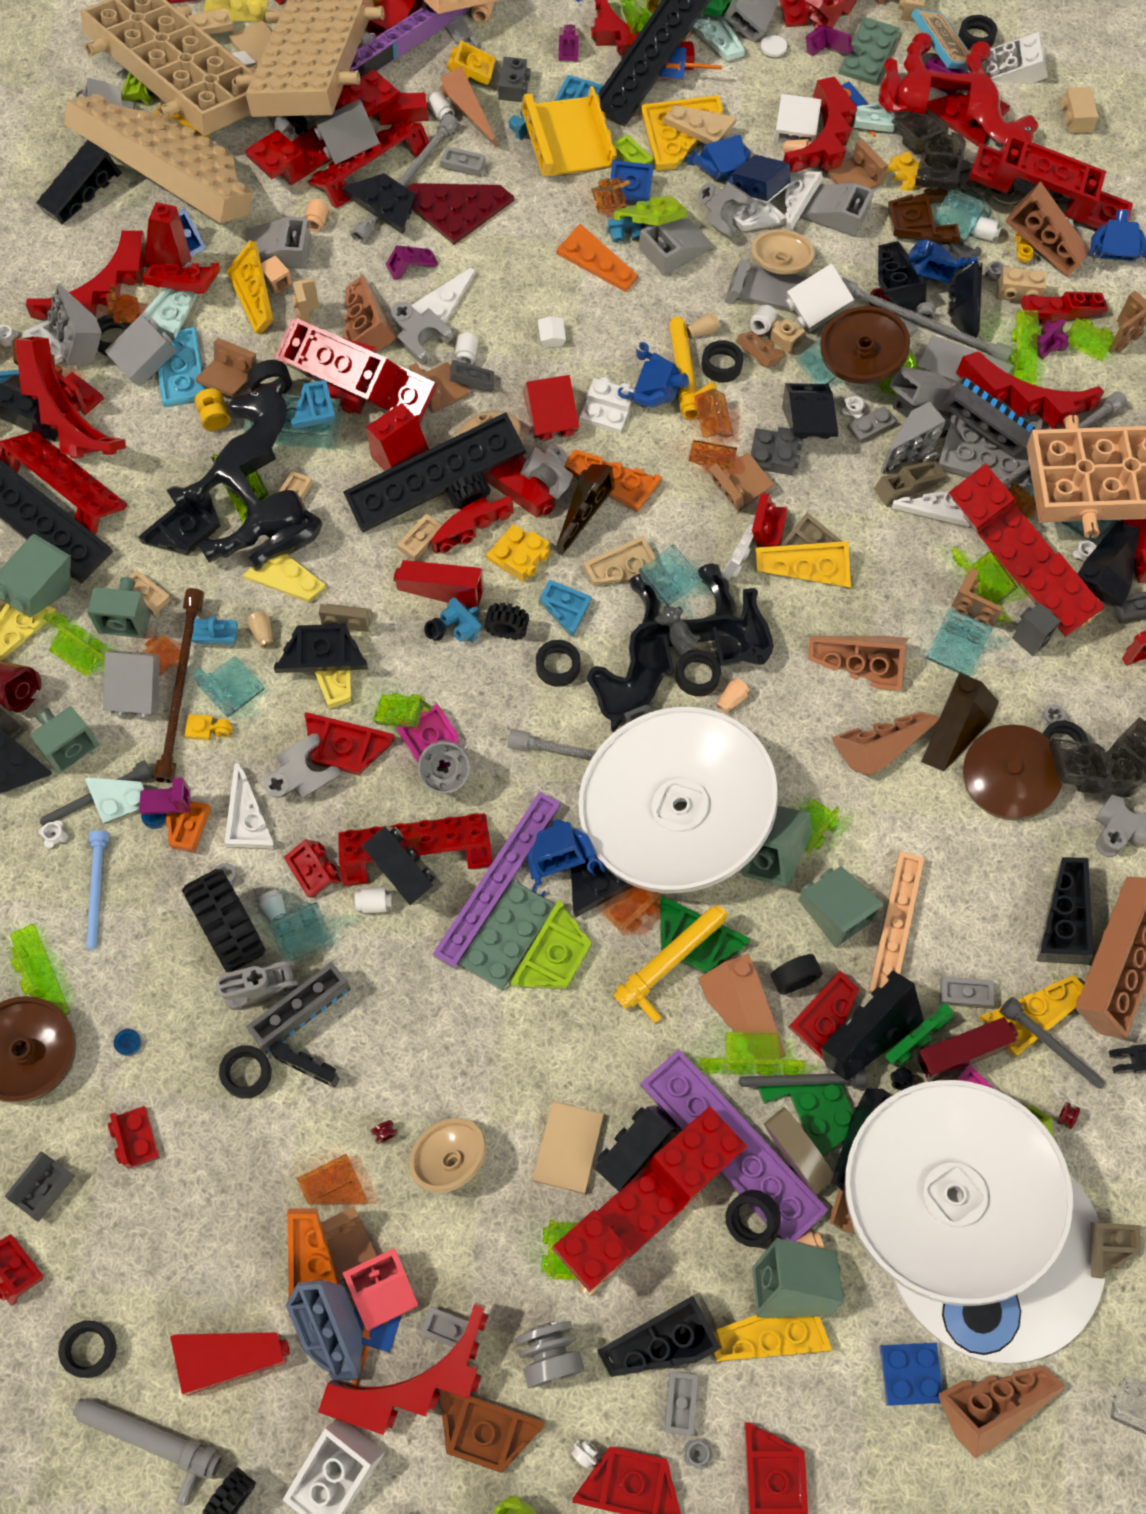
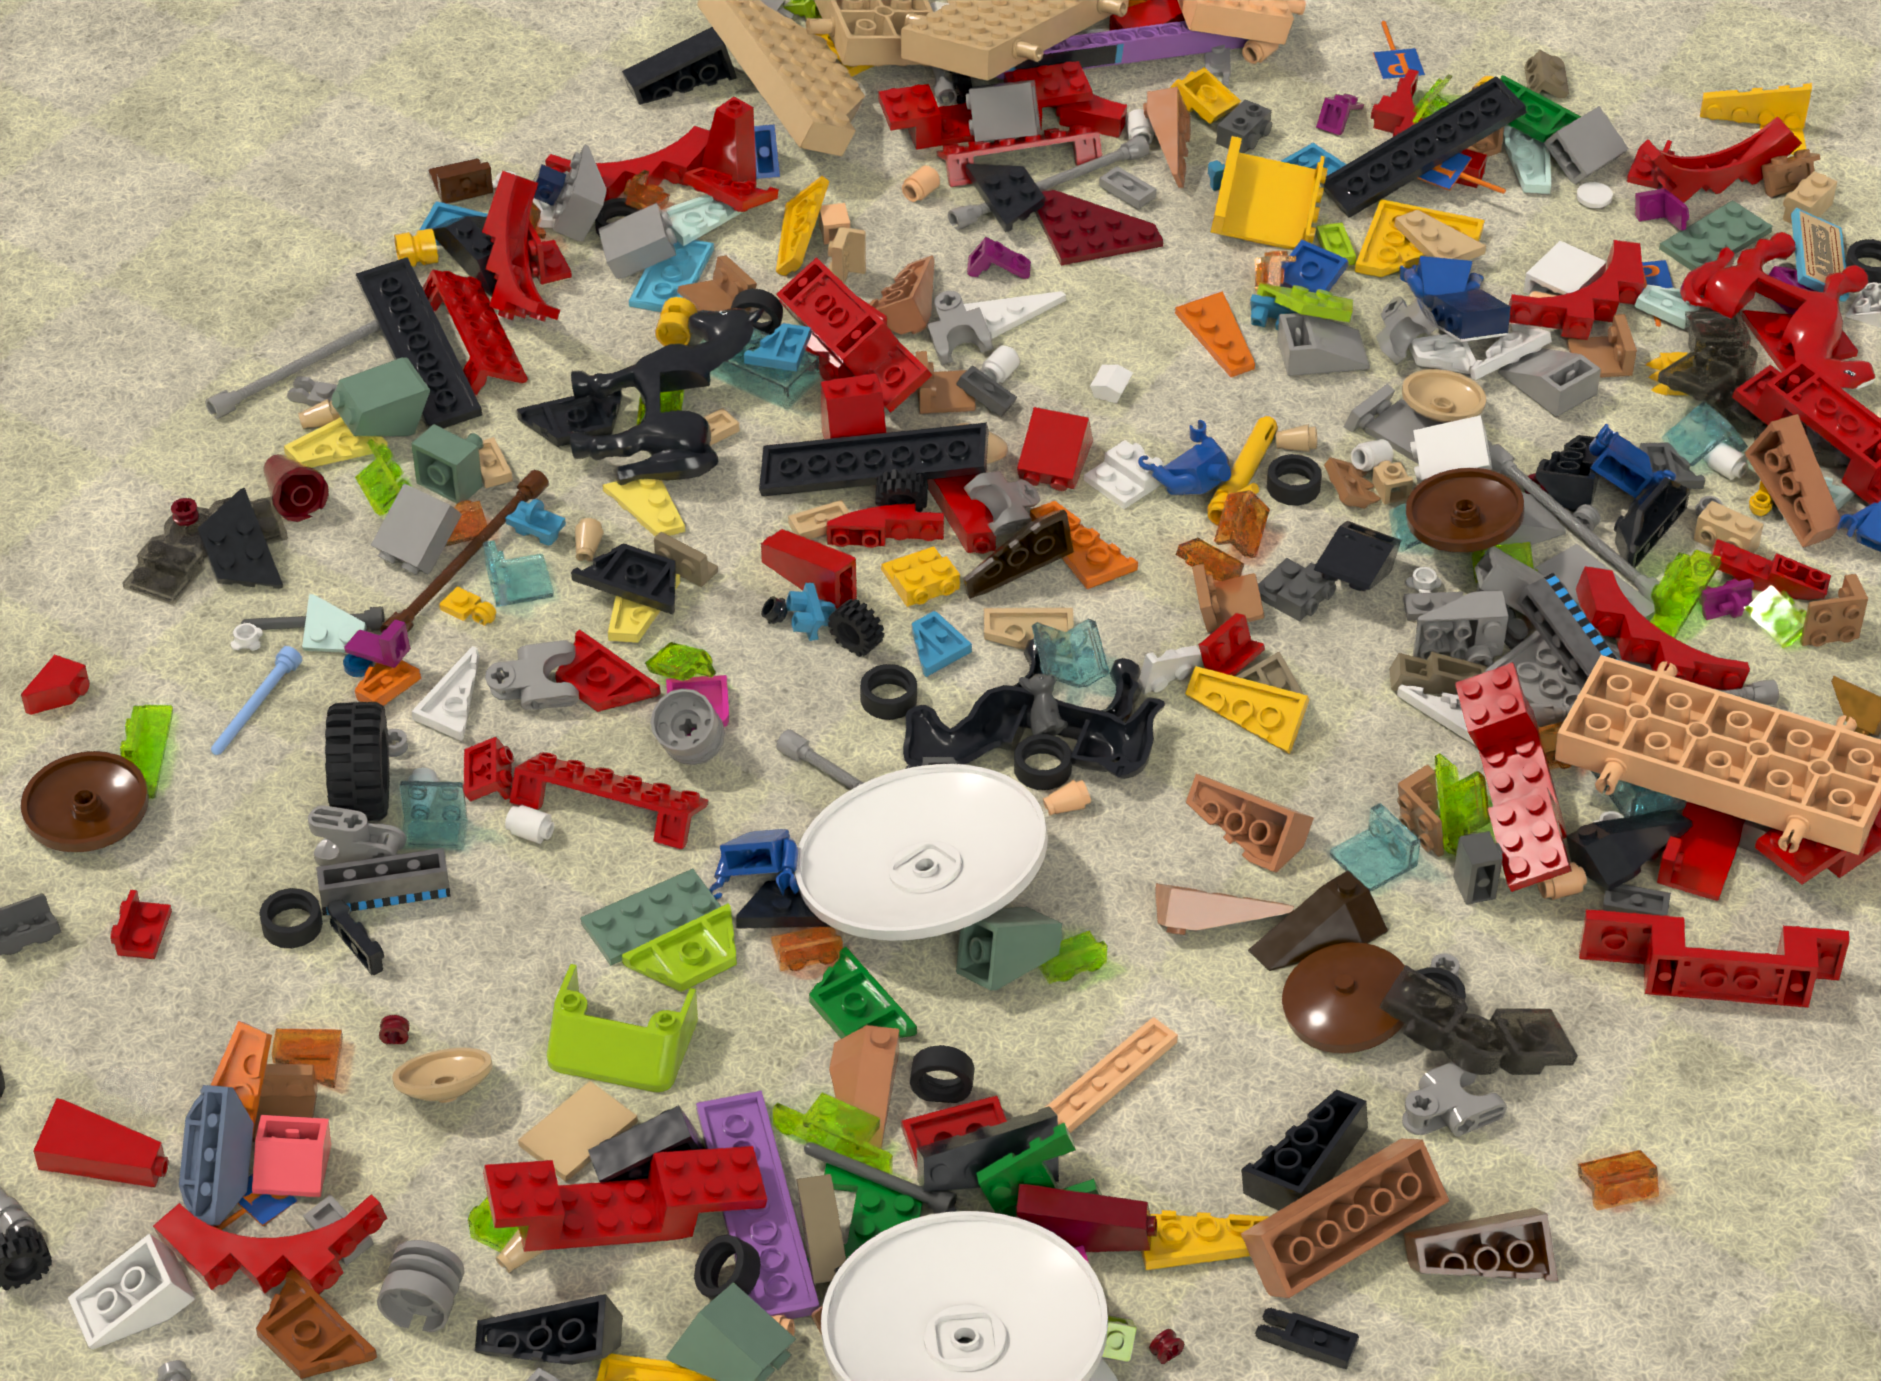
camera: 30 degrees right, 20 degrees down
(43, 326) = (549, 184): none -> dark blue plate
(63, 738) = (313, 553): sand green brick -> none
(127, 1042) = (192, 846): clear blue tile -> none
(283, 238) = (868, 195): light grey slope -> none
(402, 865) = (577, 794): black wedge -> none
(496, 880) = (671, 861): medium lavender plate -> none
(555, 1072) = (618, 1050): none -> lime windscreen
(639, 983) = (762, 1013): yellow cylinder -> none
(839, 905) = (1042, 1038): sand green slope -> none
(914, 219) = (1643, 418): reddish brown wing -> none
(967, 992) = (1133, 1181): light grey plate -> none
(1013, 1010) = (1168, 1209): dark grey piece -> none

